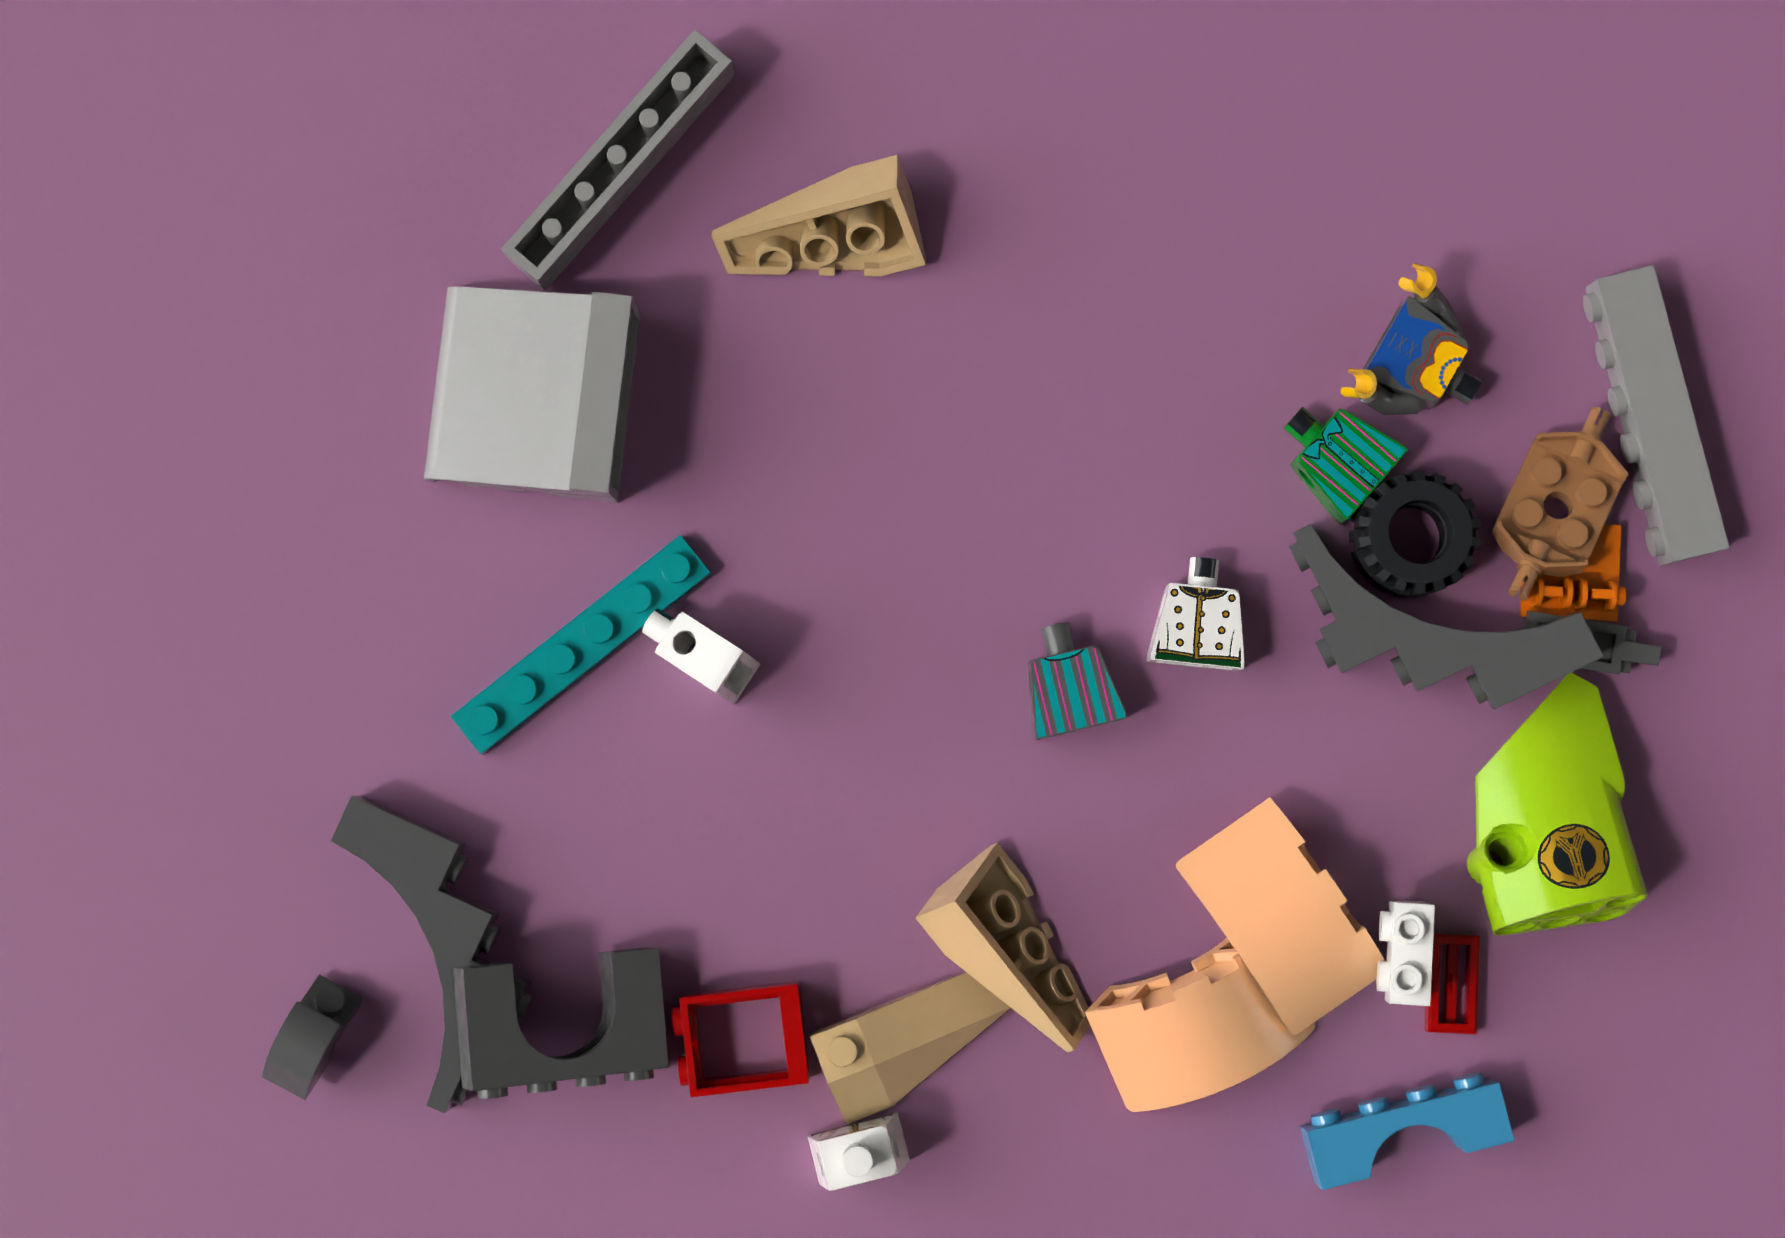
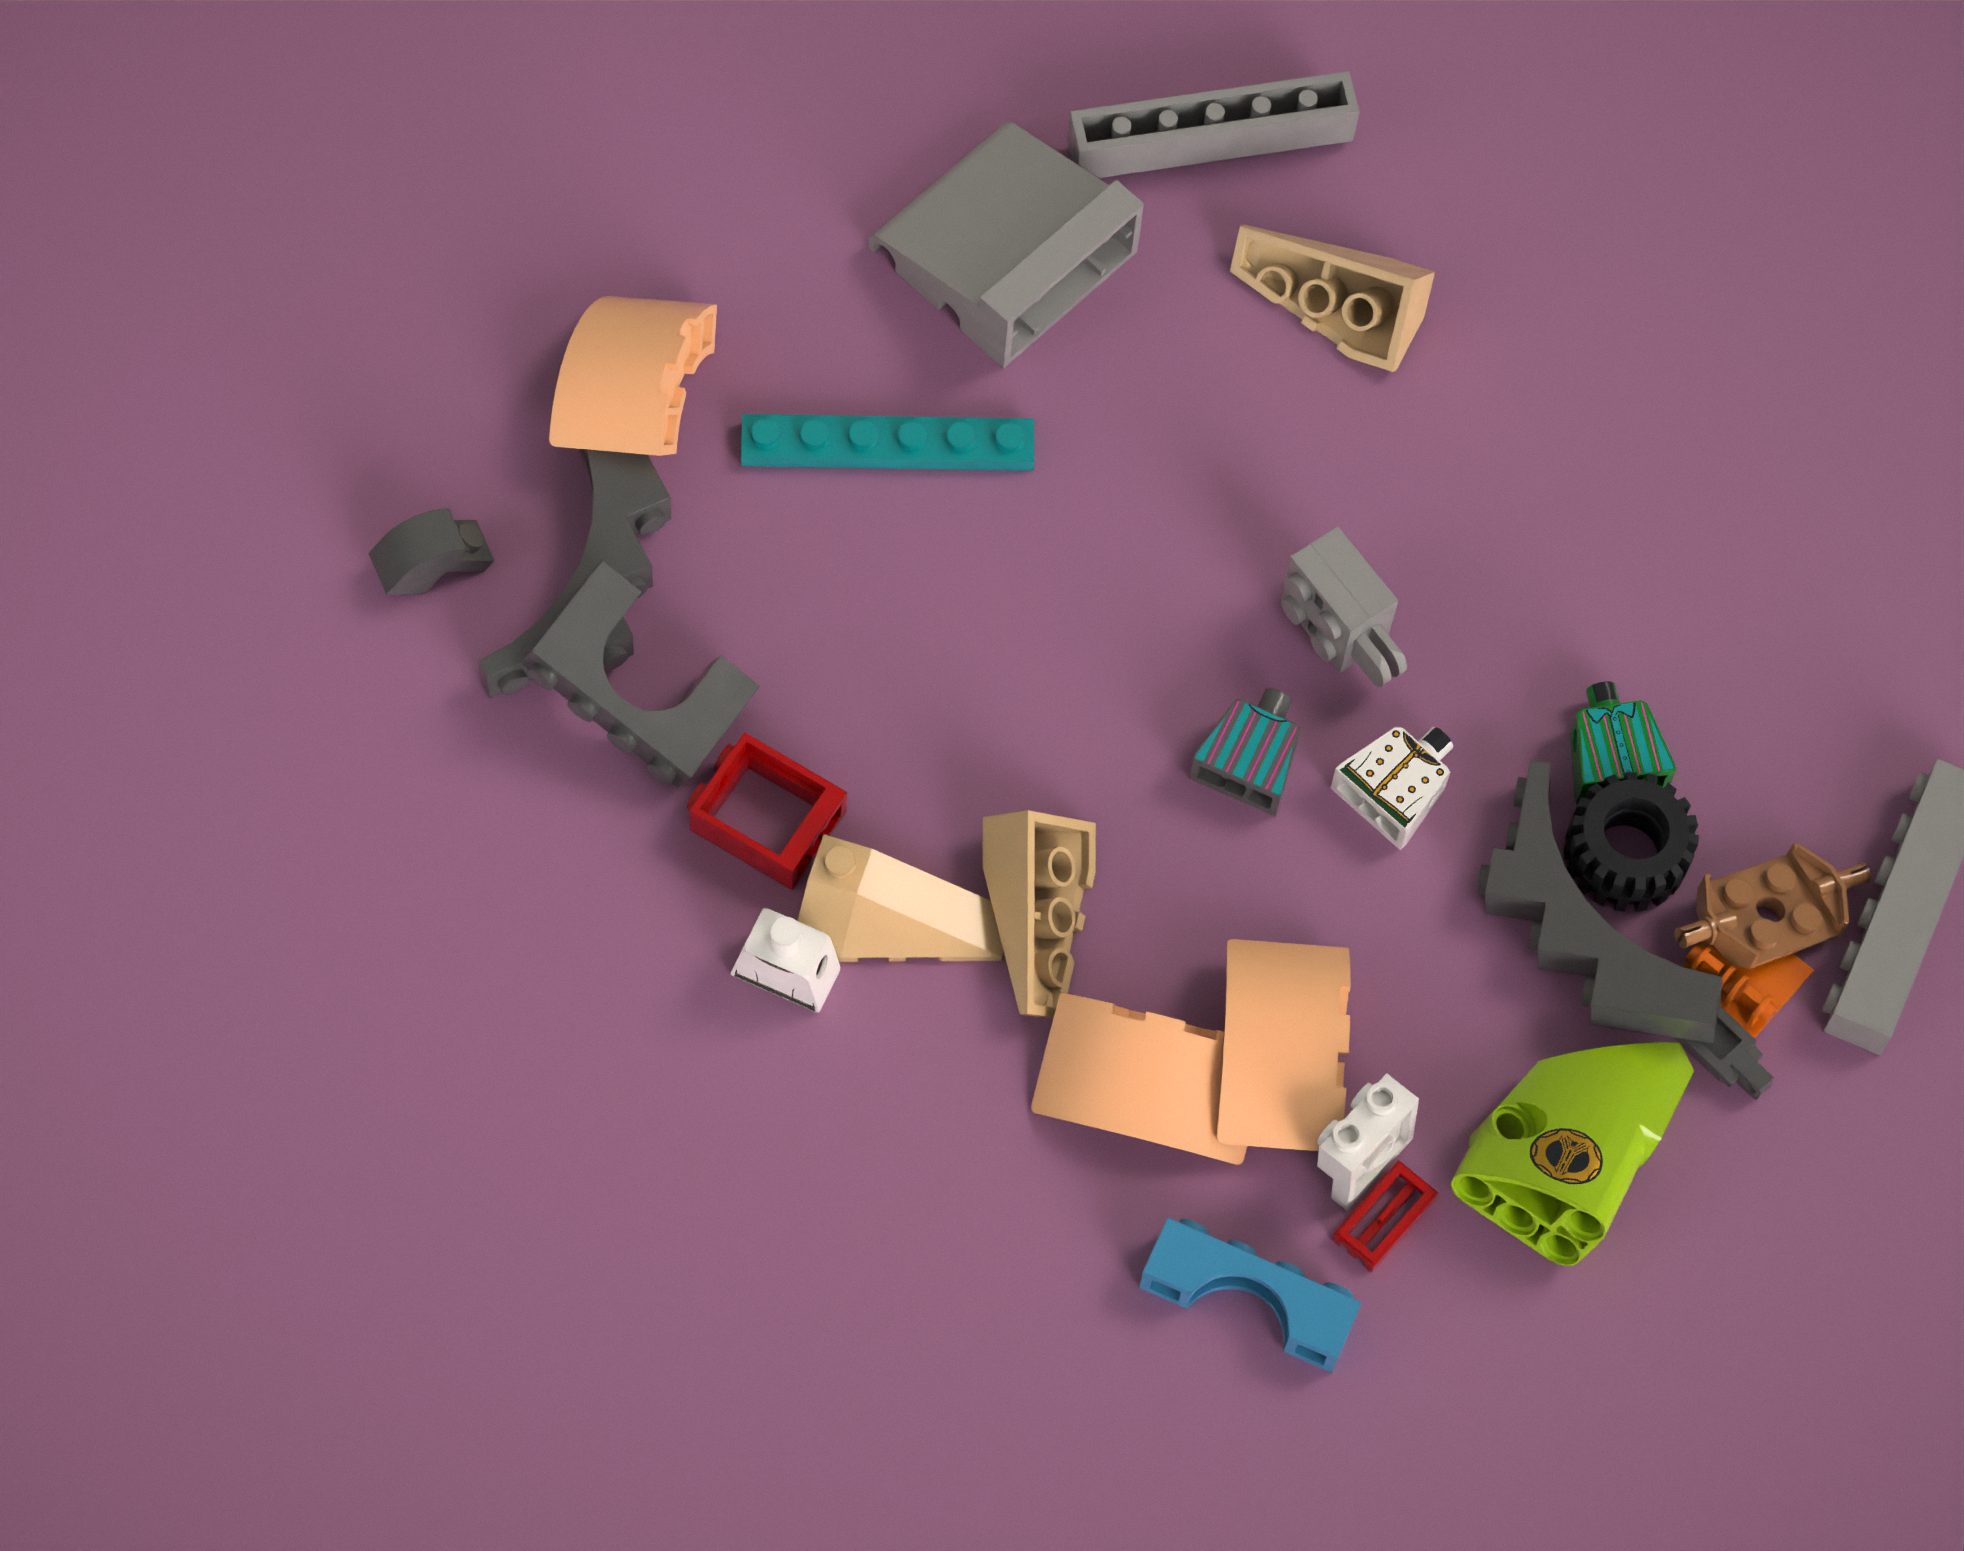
camera: 35 degrees right, 20 degrees down
(333, 763) = (626, 372): none -> light nougat panel
(711, 662) = (978, 494): white torso -> none
(1054, 517) = (1343, 607): none -> light grey brick
(1416, 354) = (1738, 714): torso -> none

